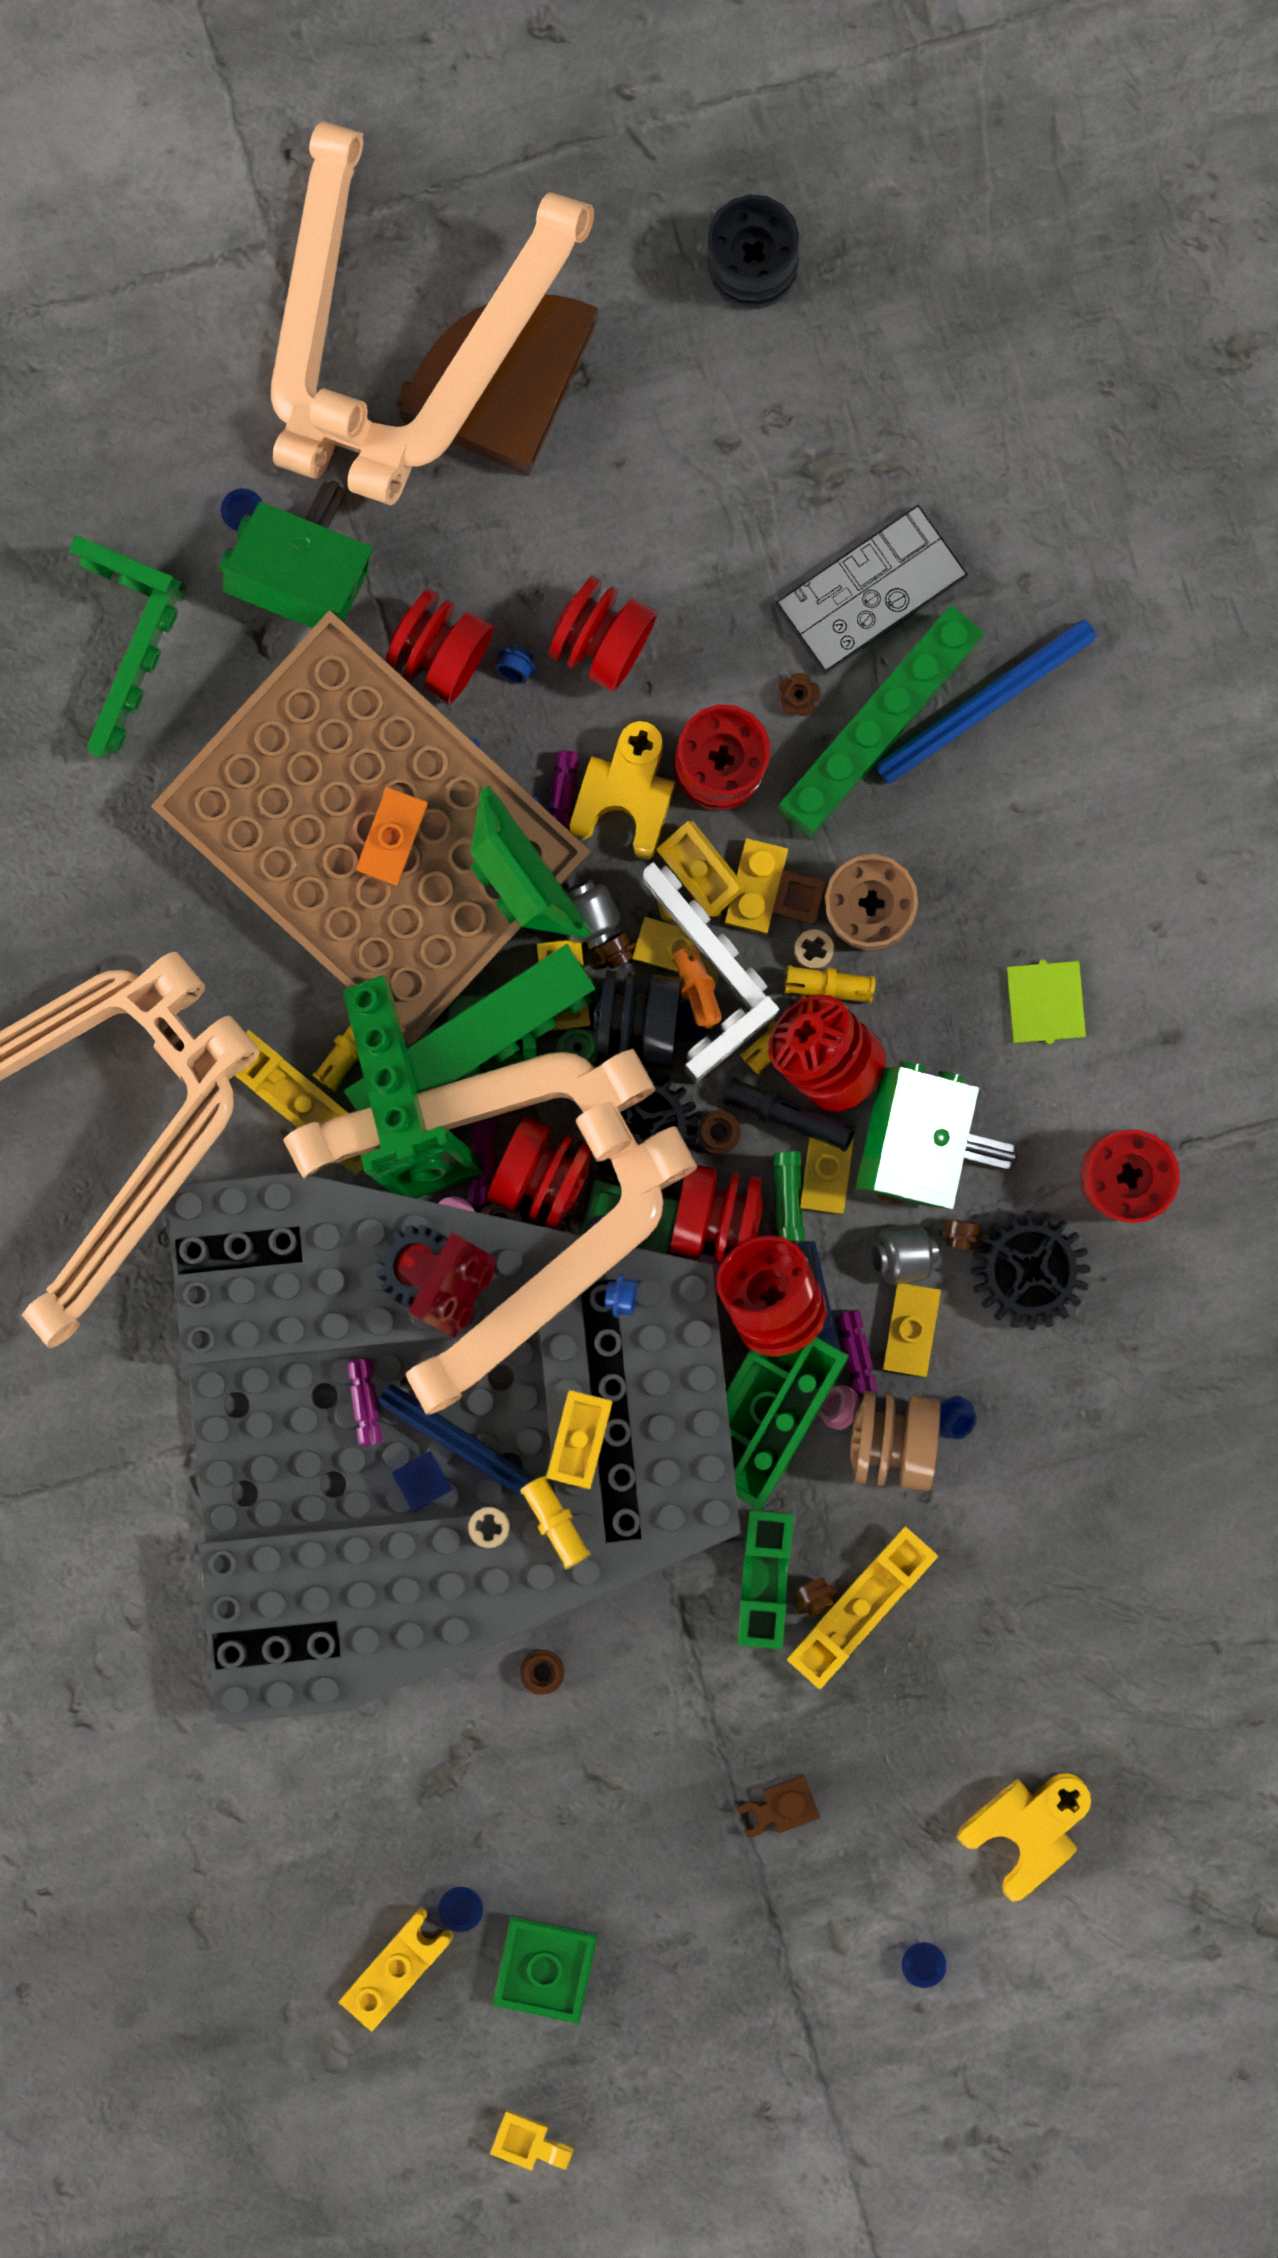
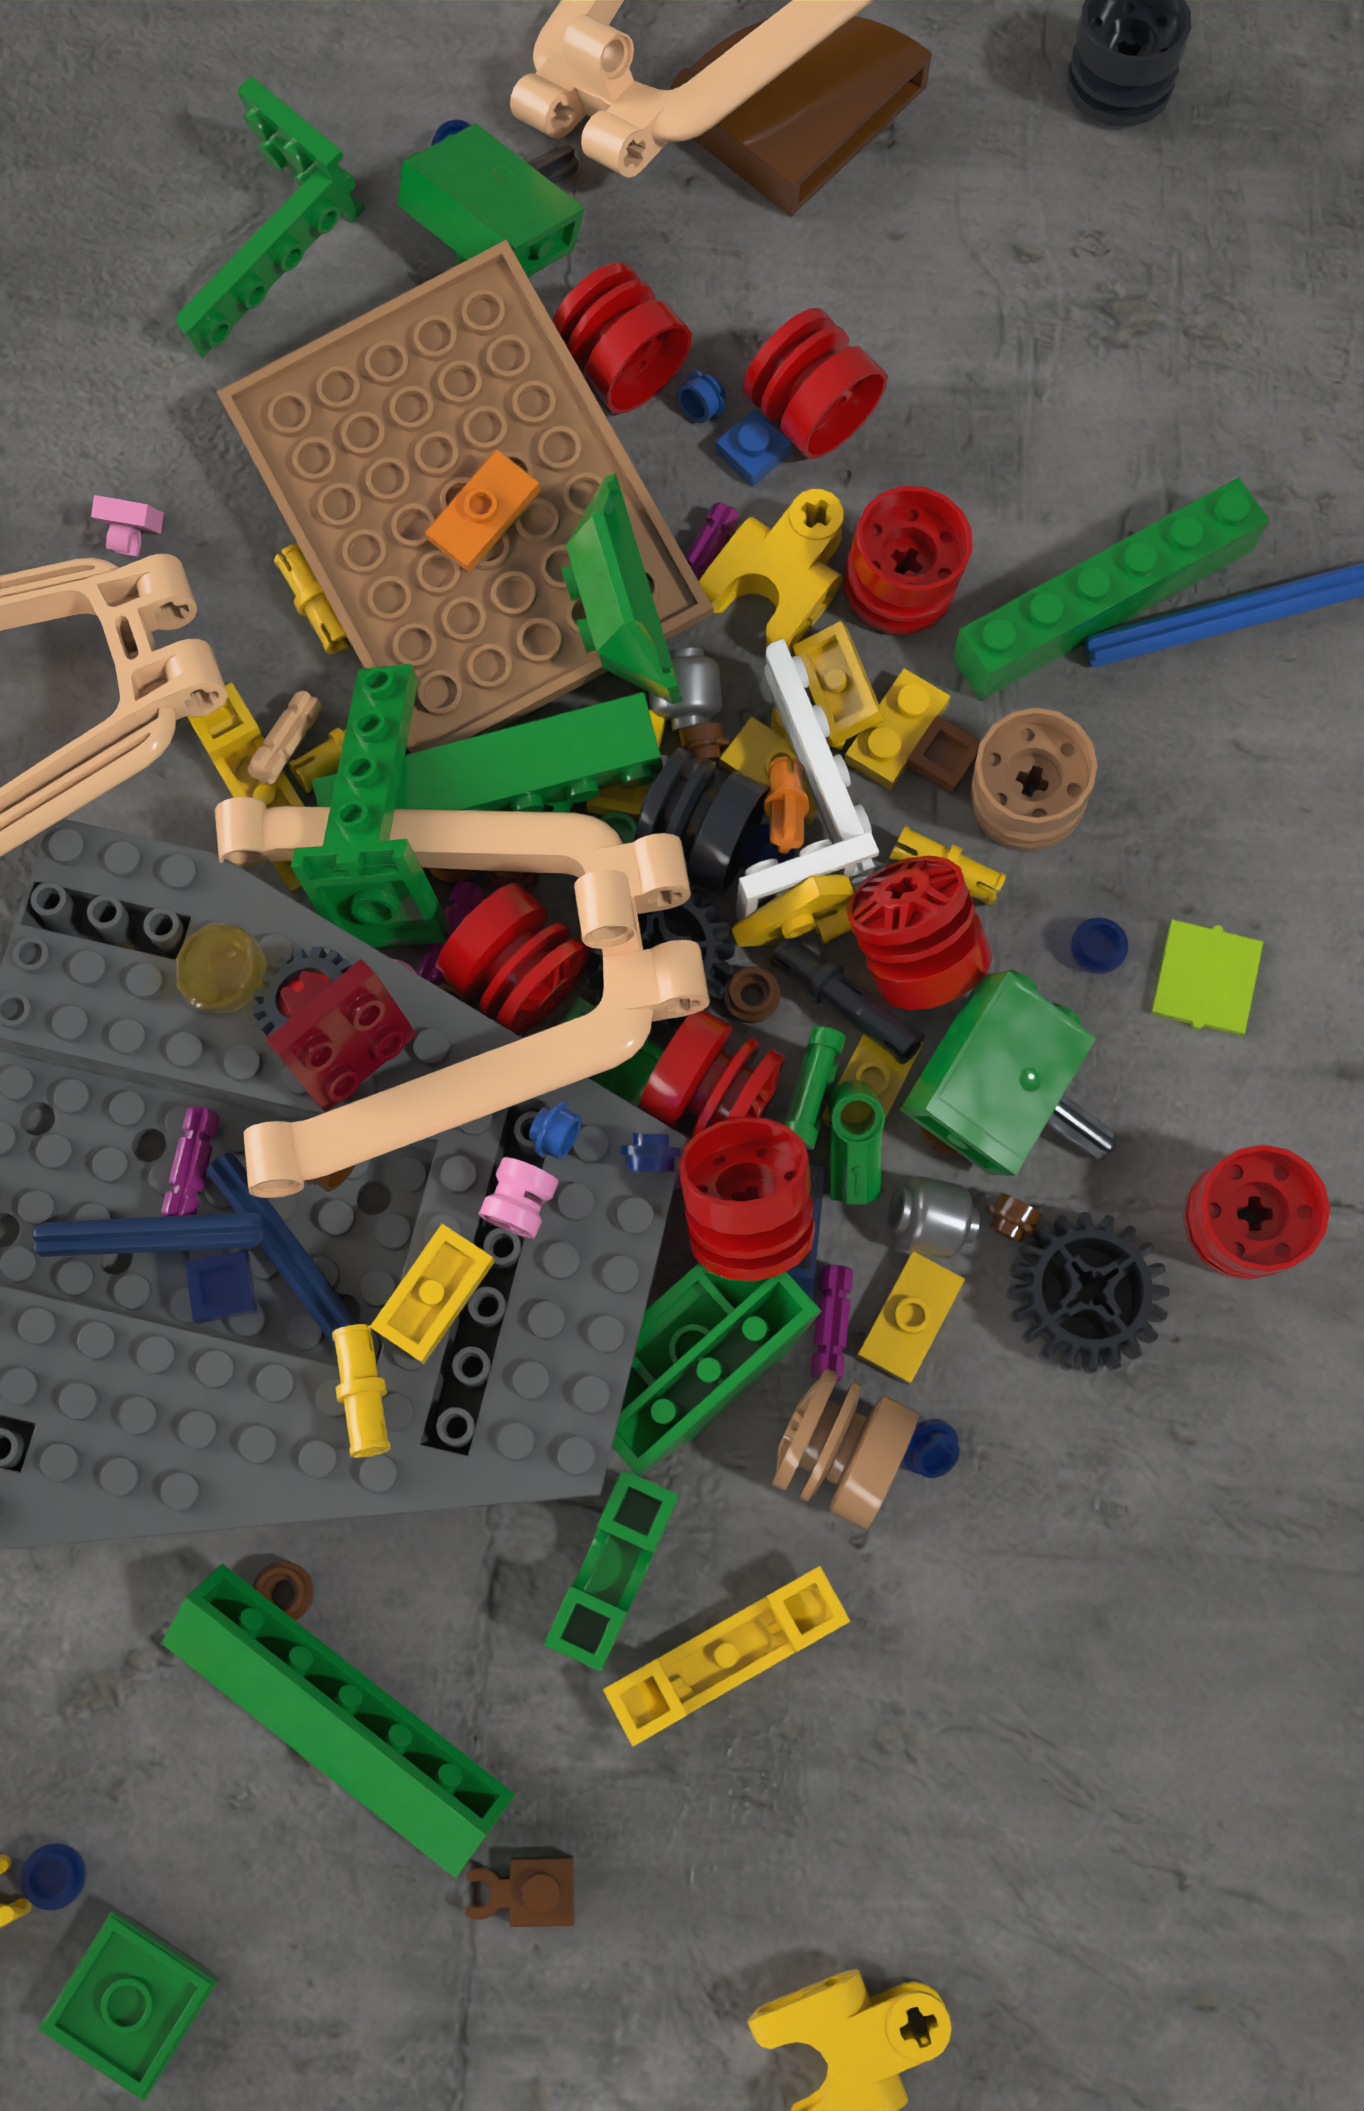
camera: 15 degrees right, 10 degrees down
(112, 922) = (126, 523): none -> bright pink tile
(277, 937) = (311, 600): none -> yellow pin
(303, 1056) = (285, 737): none -> light nougat axle
(343, 1263) = (220, 968): none -> clear yellow hair
(357, 1463) = (149, 1234): none -> dark blue axle
(499, 1518) = (256, 1376): tan bush -> none
(568, 692) = (753, 447): none -> blue plate
(614, 1353) = (518, 1197): none -> bright pink wheel
(614, 1741) = (337, 1719): none -> green brick
(694, 1289) = (650, 1153): none -> clear blue plate
(730, 1067) = (793, 911): none -> yellow plate
(798, 706) = (1016, 546): reddish brown plate -> none
(811, 936) = (943, 806): tan bush -> none
(815, 1597) = (670, 1619): reddish brown plate -> none
(831, 1222) = (855, 1146): none -> green piece
(840, 1407) = (786, 1382): bright pink plate -> none
(871, 589) = (1143, 450): light grey tile -> none
(959, 1006) = (1099, 945): none -> clear blue plate

